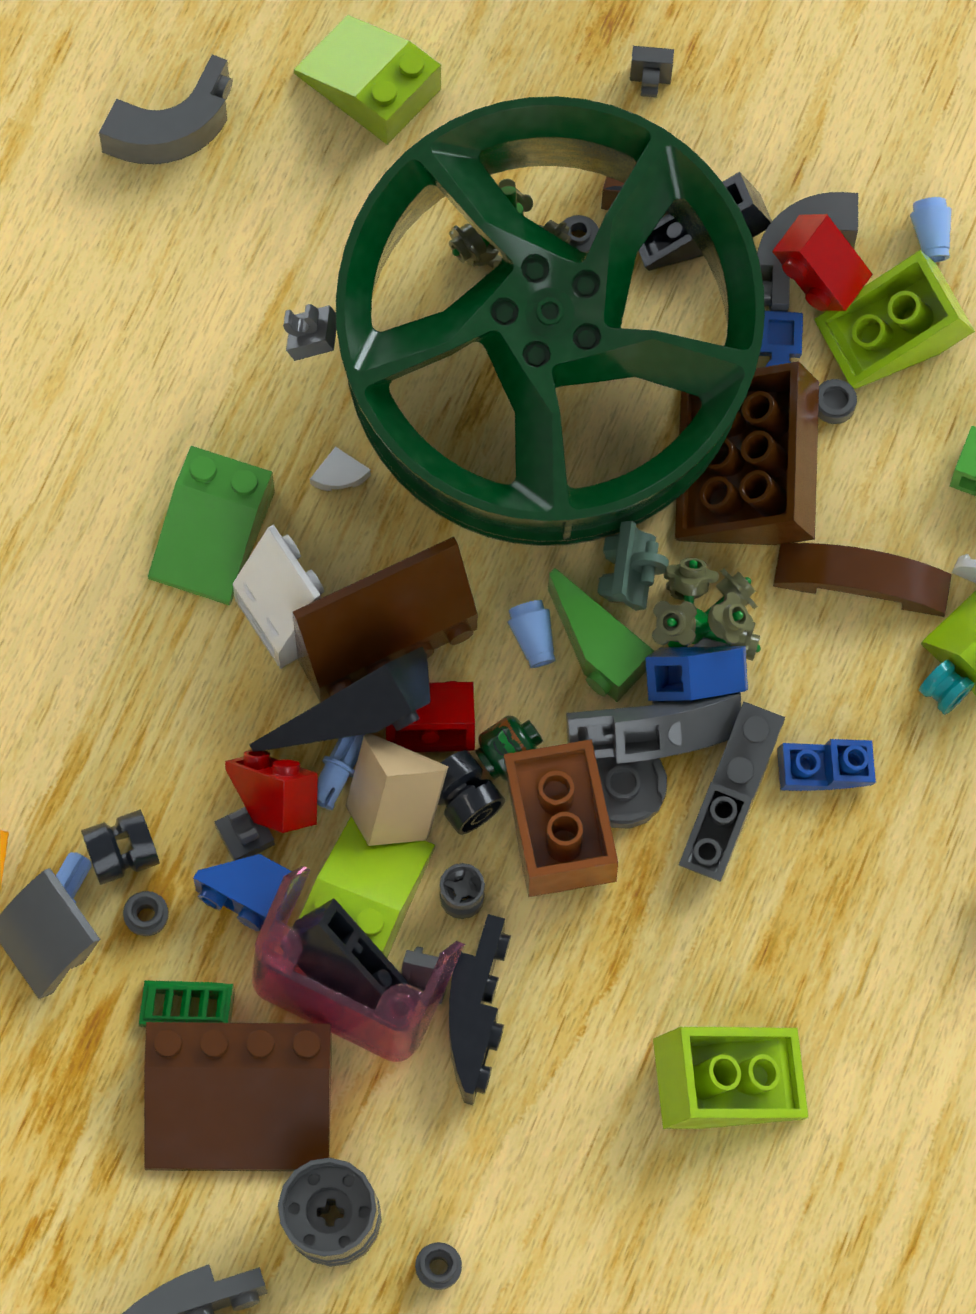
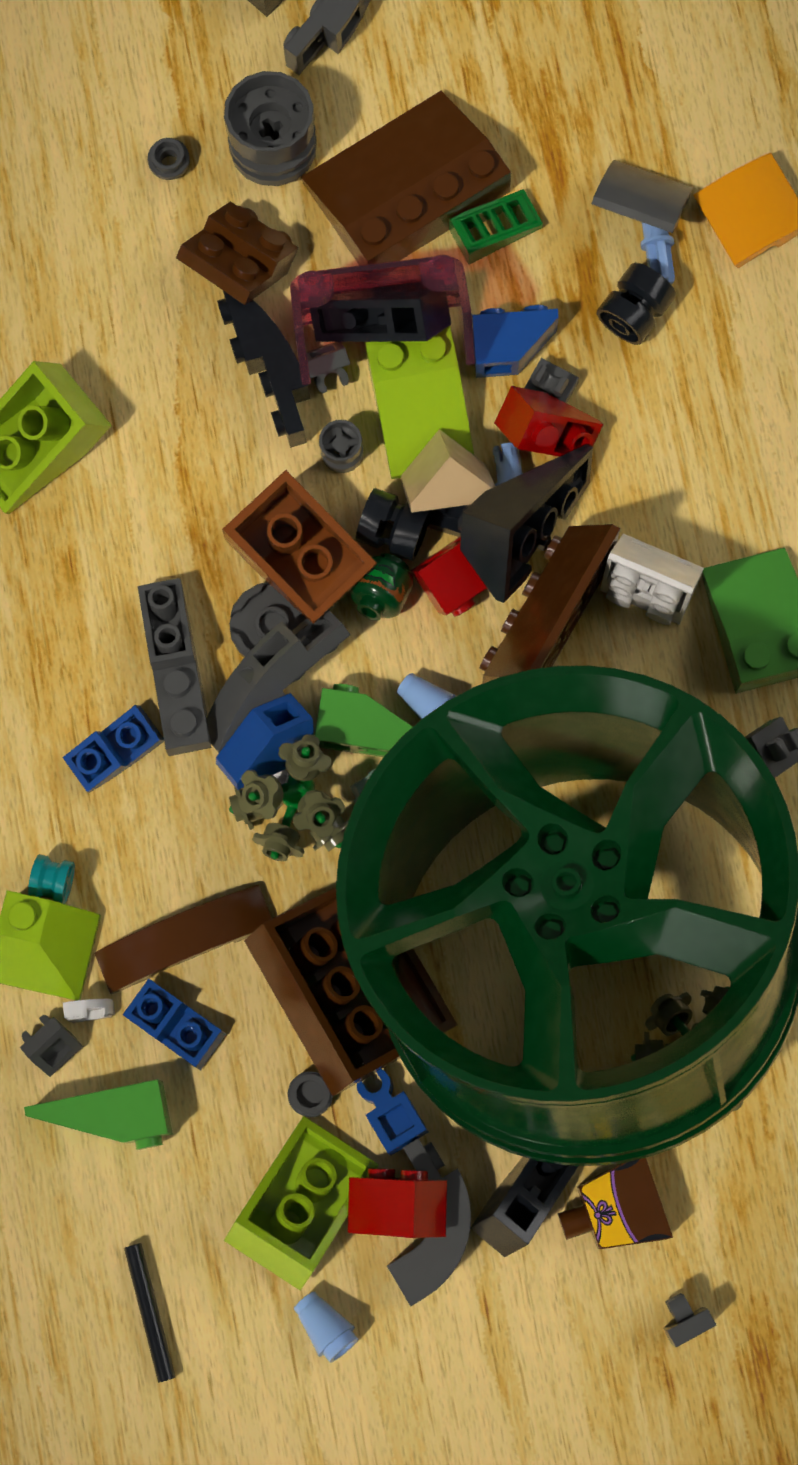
camera: 155 degrees right, 10 degrees up
(142, 901) = (584, 263): dark grey plate -> none
(437, 1116) = (239, 252): none -> reddish brown plate
(912, 518) = (174, 1024): none -> blue slope

